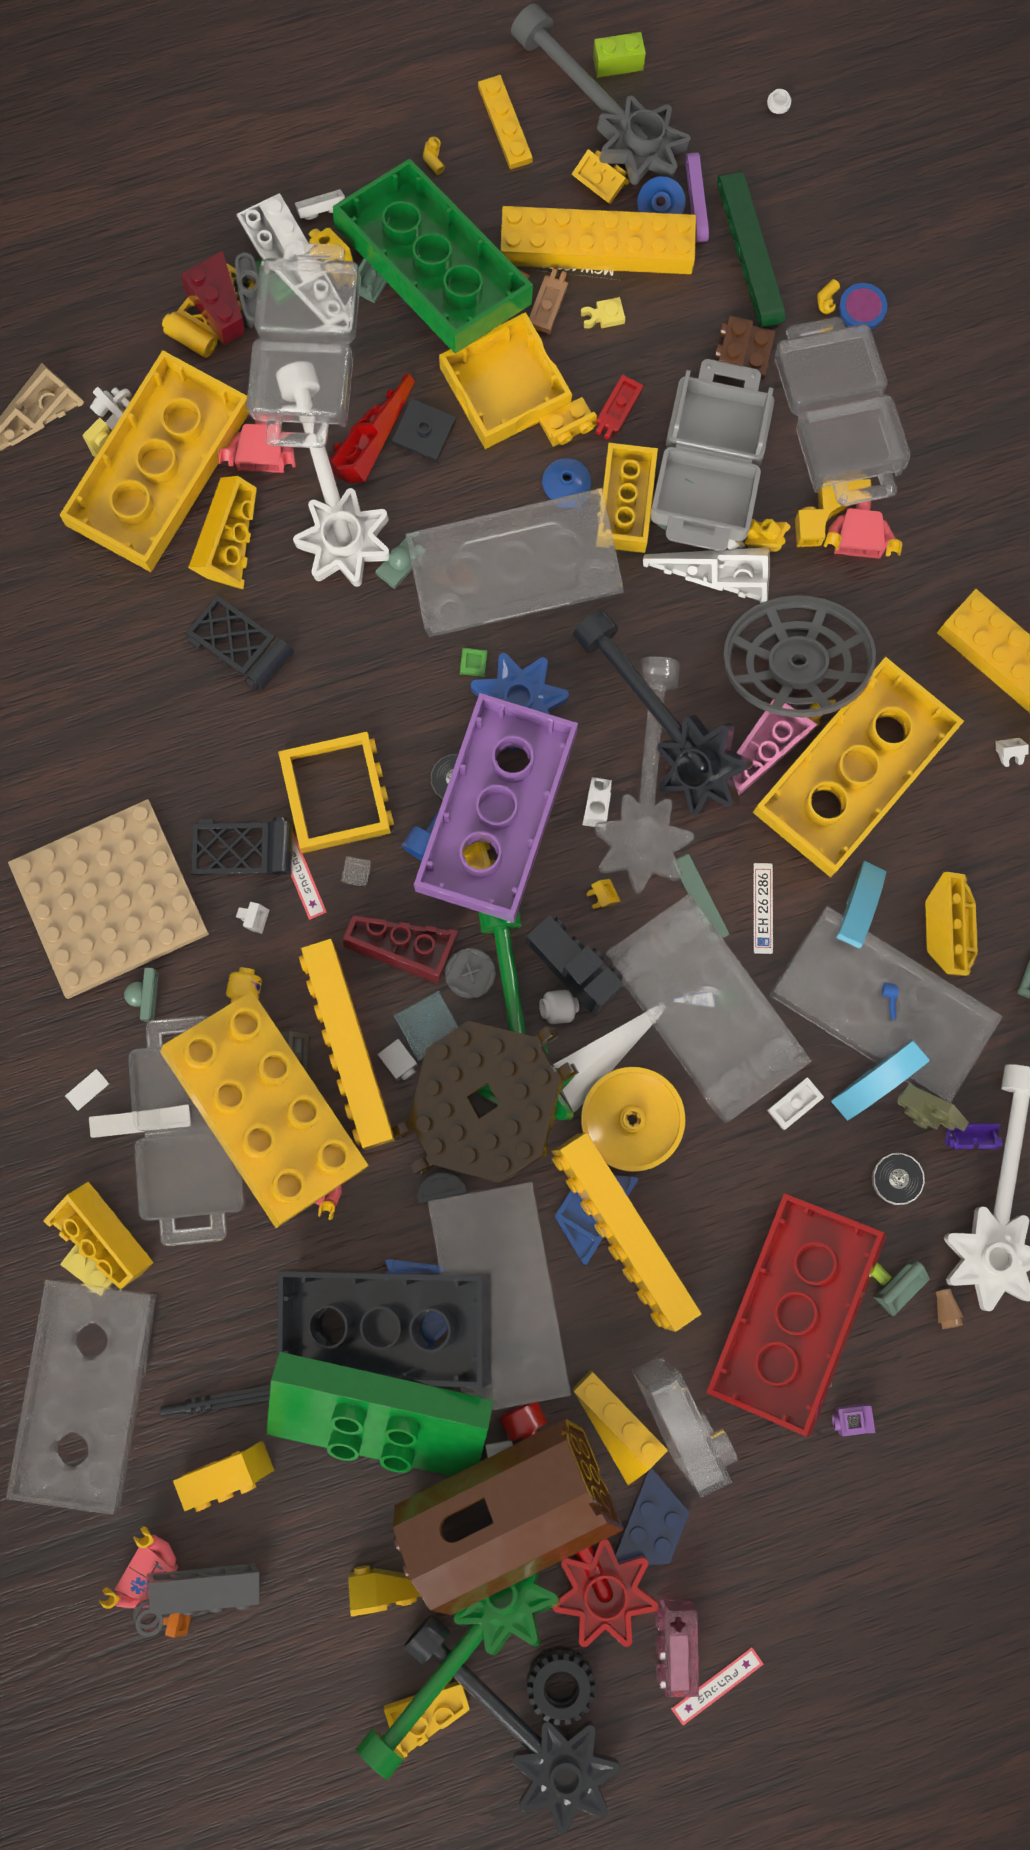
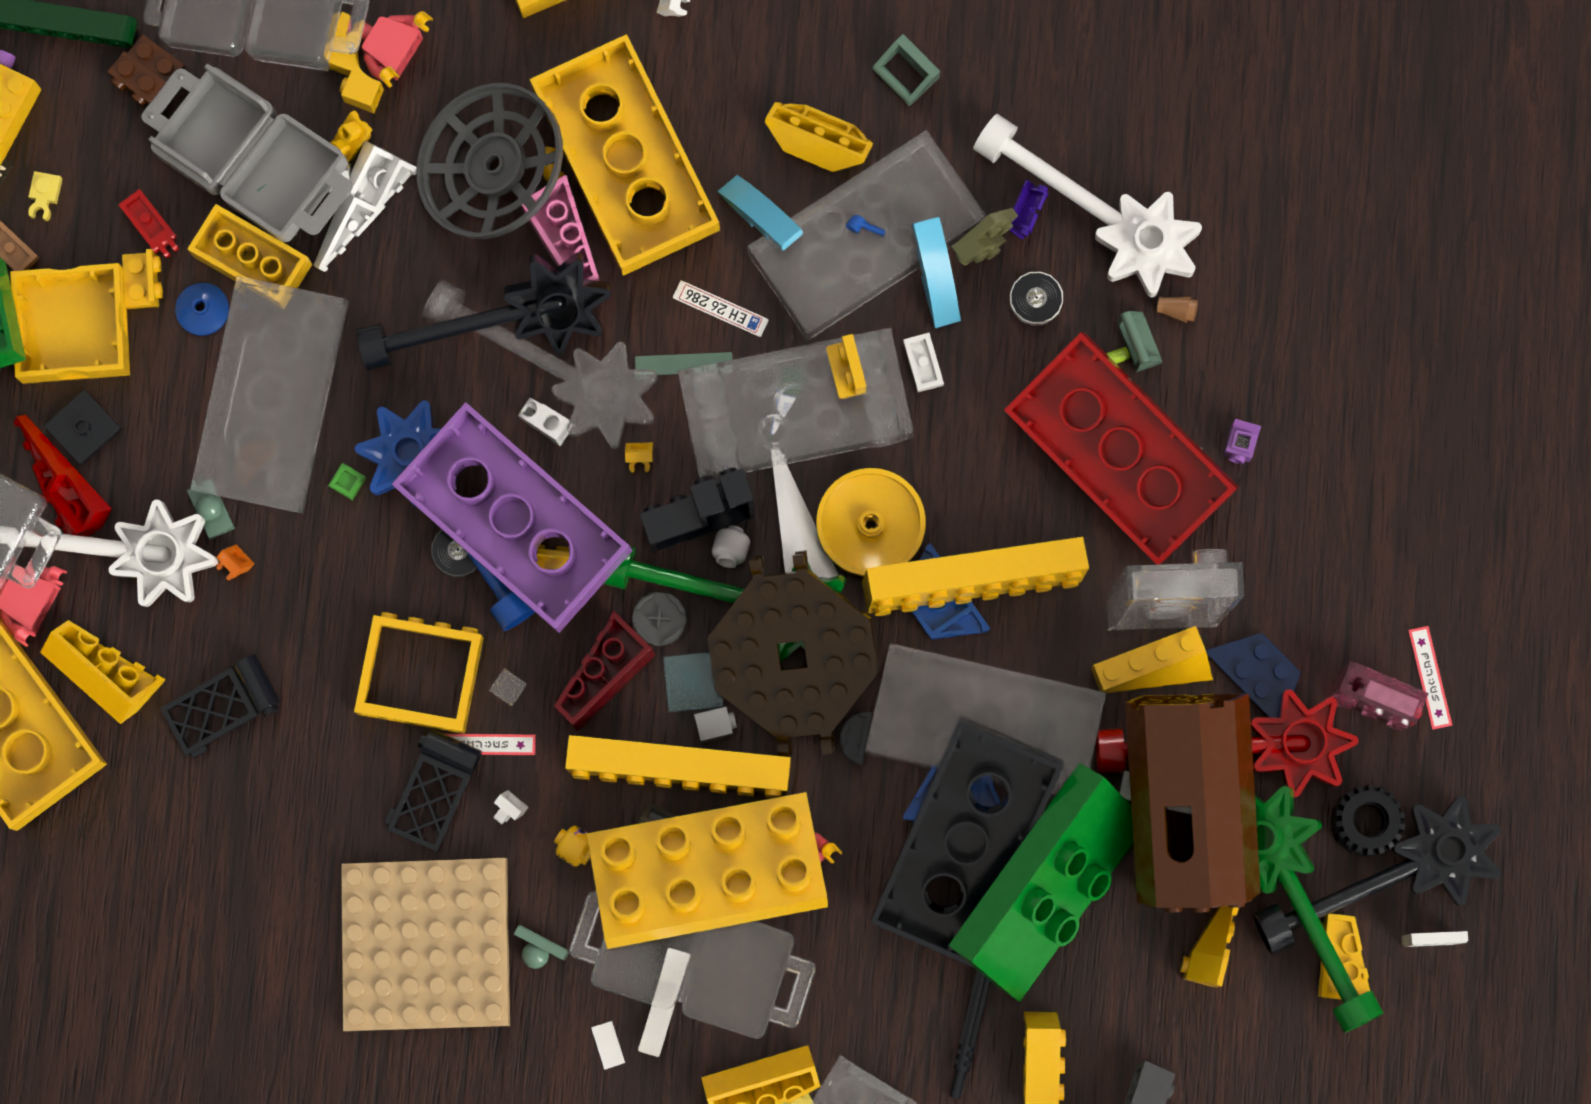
camera: 60 degrees left, 0 degrees up
(365, 599) = (234, 560): none -> orange tile
(479, 1796) = (1434, 939): none -> white tile
(756, 1037) = (846, 368): none -> yellow bracket

